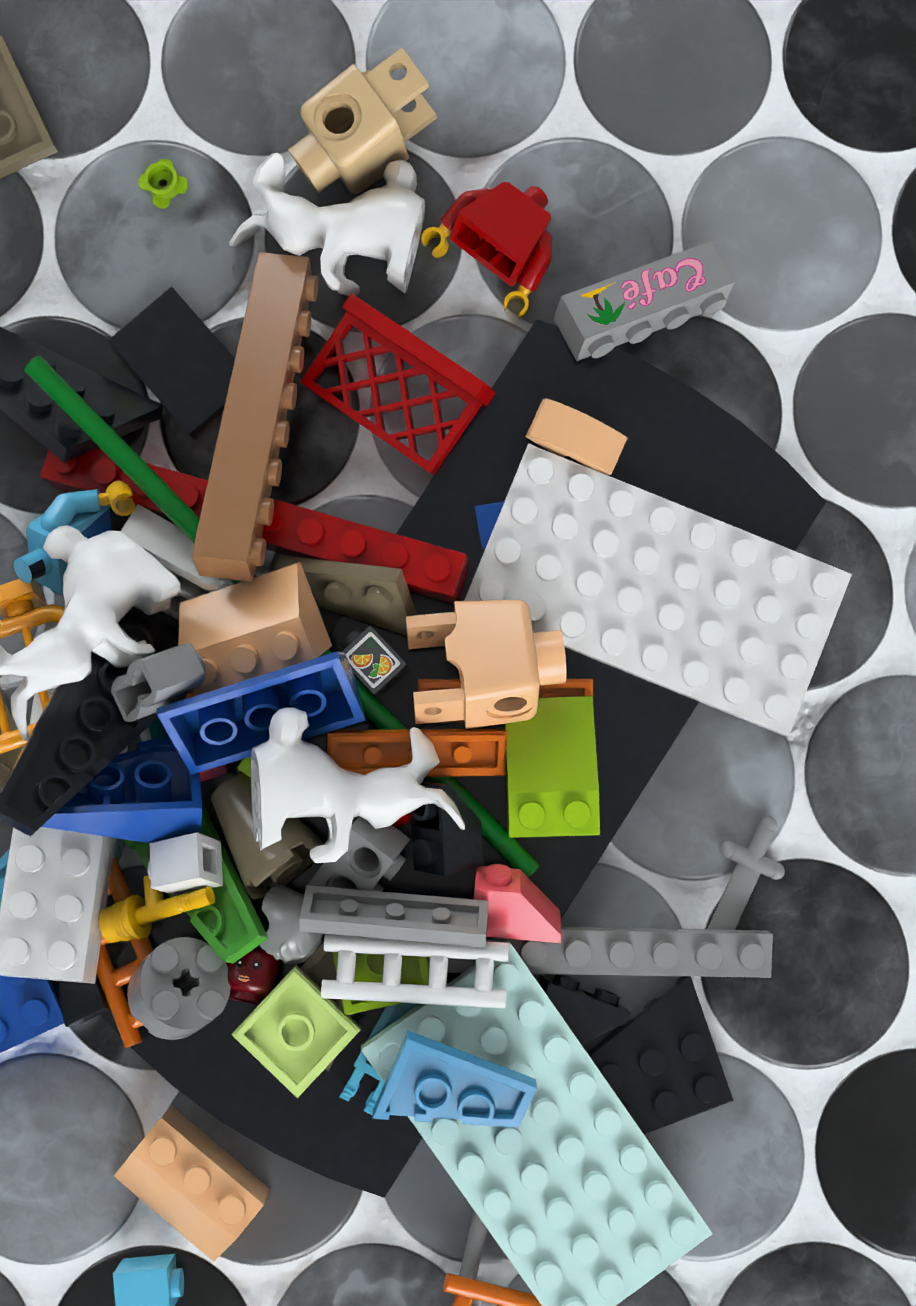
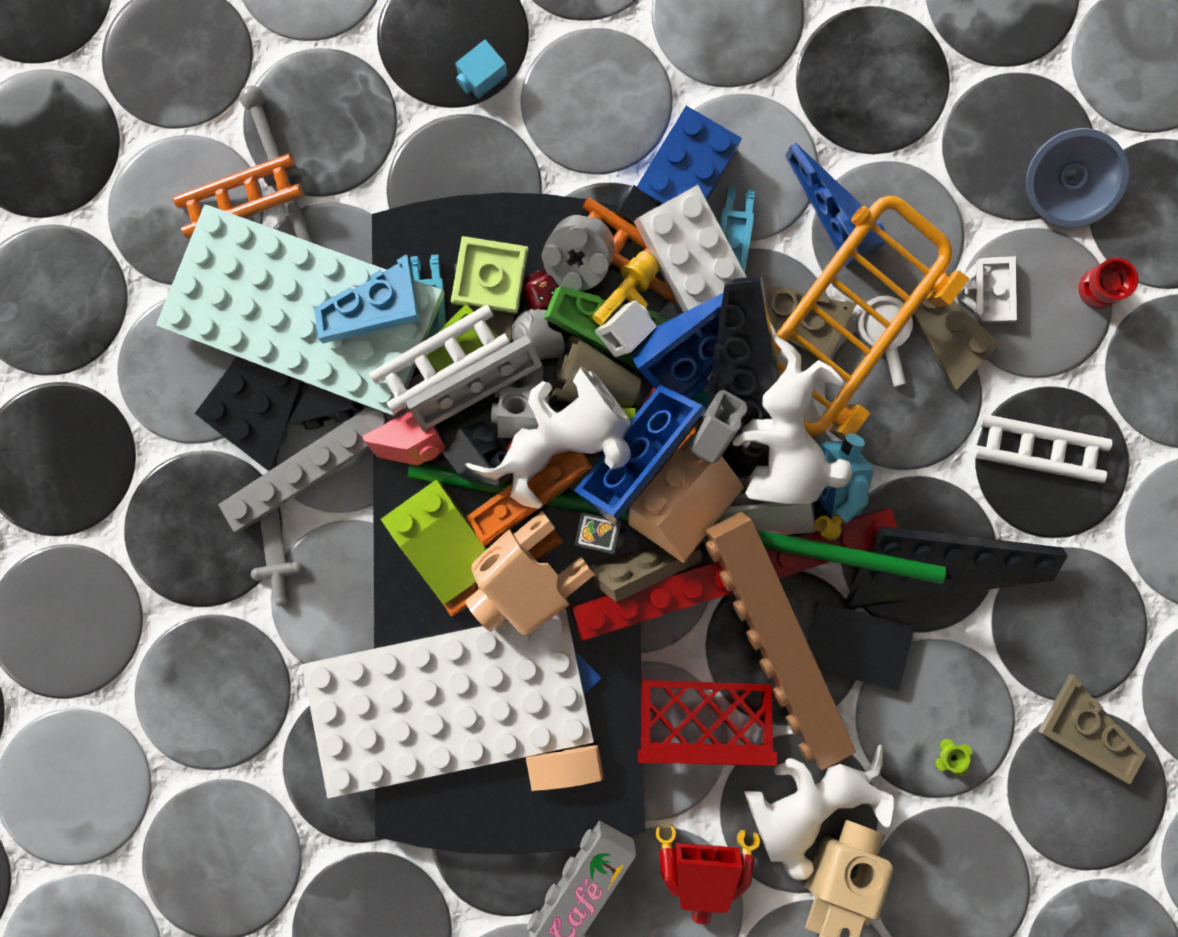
camera: 145 degrees right, 0 degrees up
(193, 1184) = (494, 146): light nougat slope -> none

